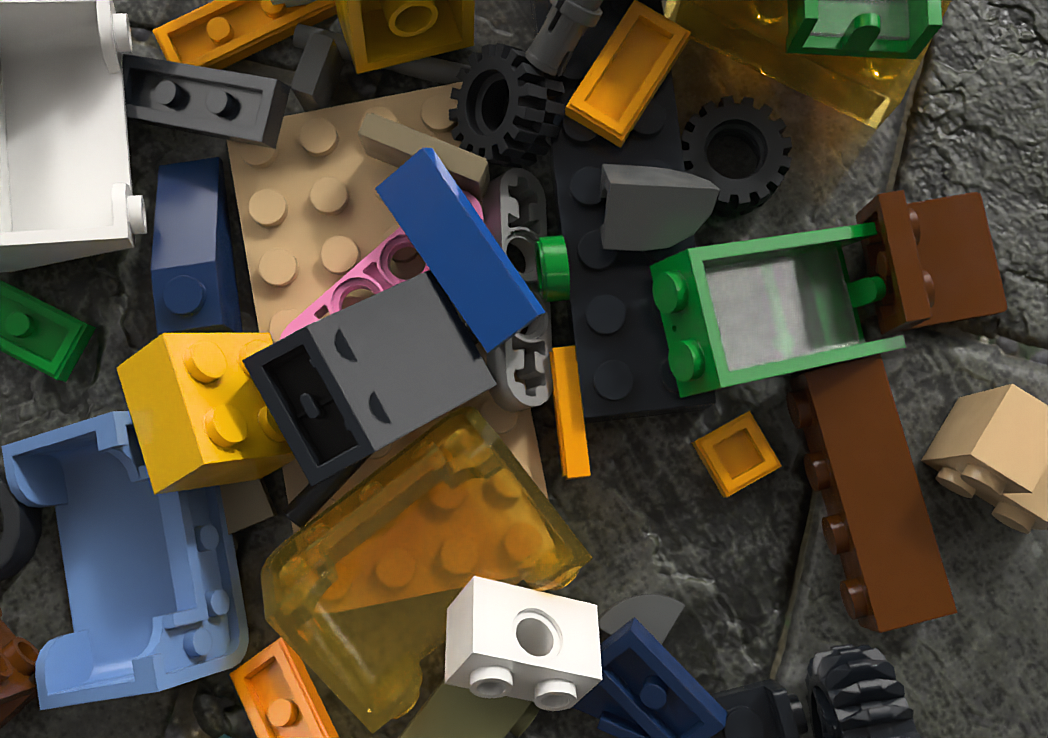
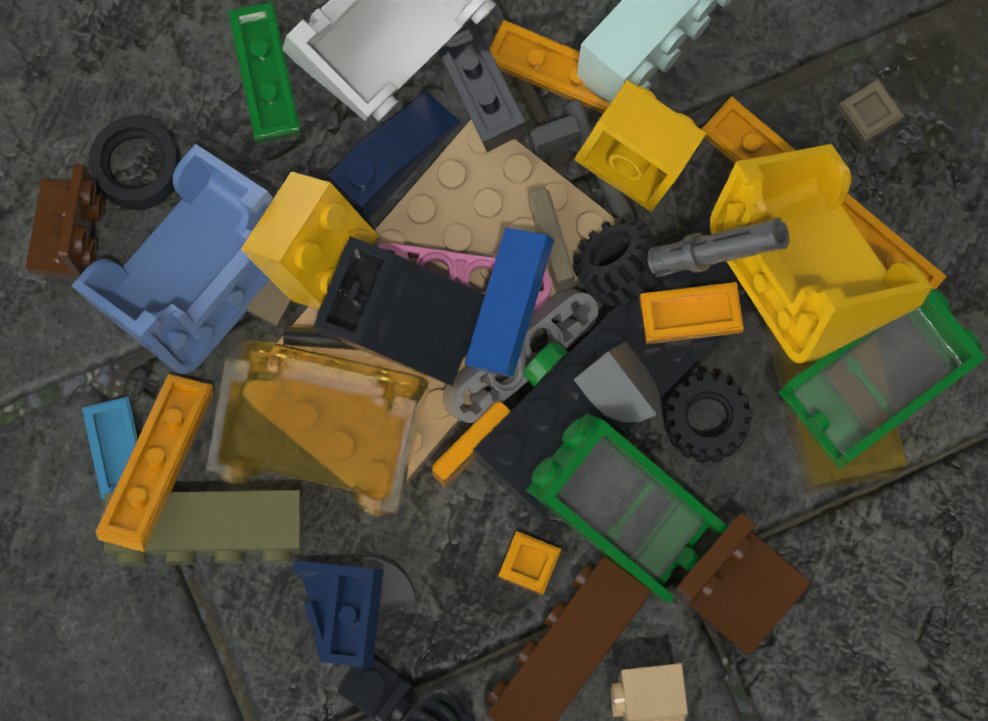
camera: 50 degrees right, 5 degrees down
(522, 644) = (318, 514): white brick -> none

